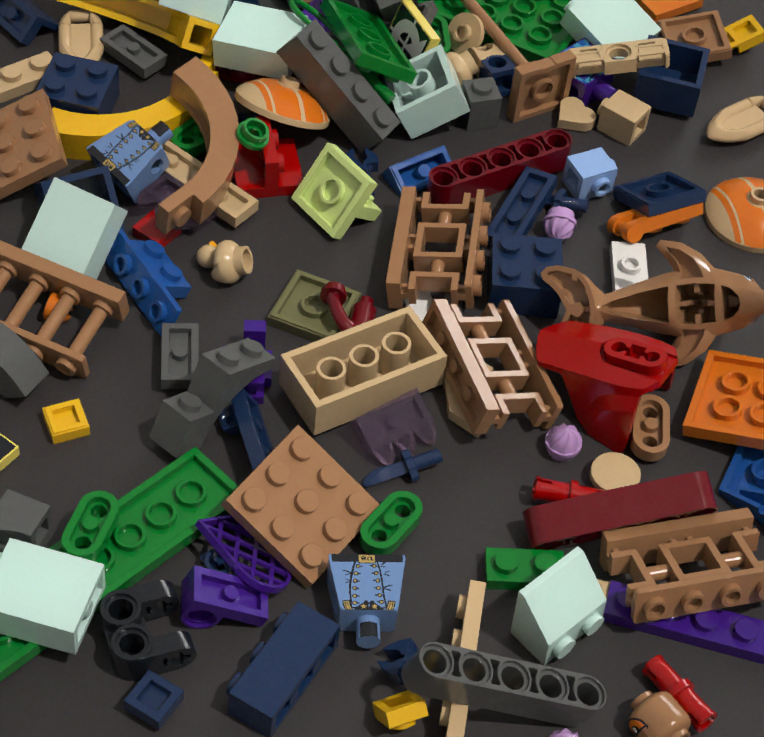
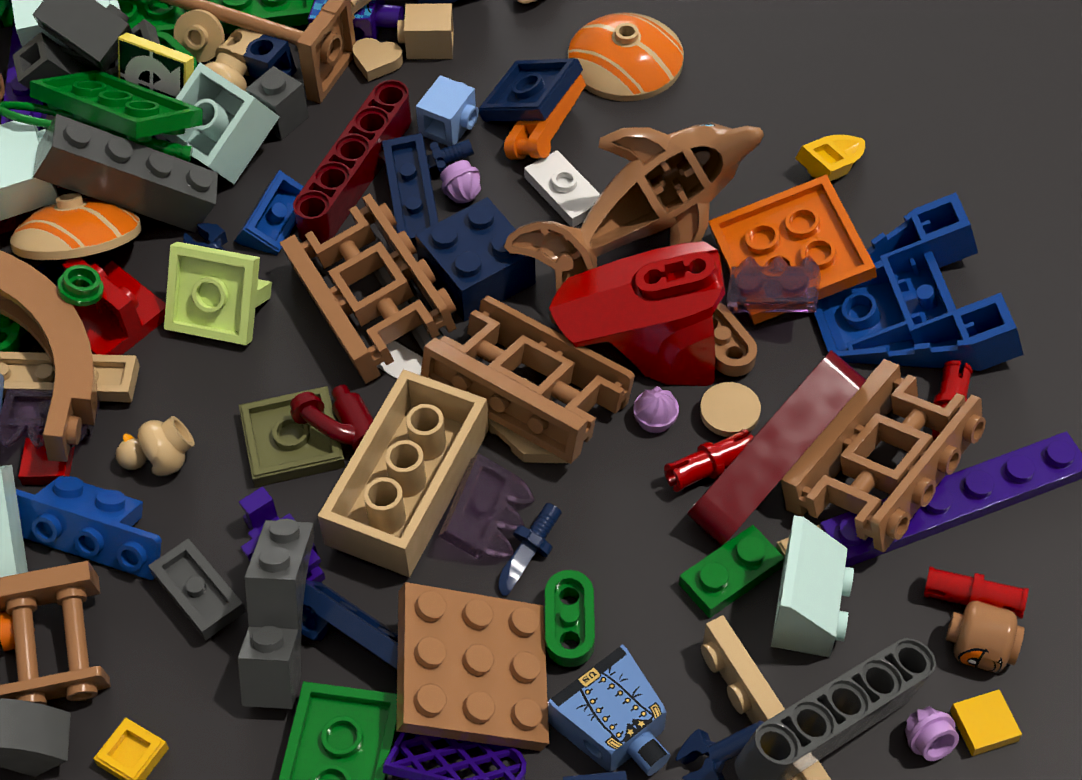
camera: 30 degrees left, 5 degrees up
(713, 416) = (774, 286): none -> plate

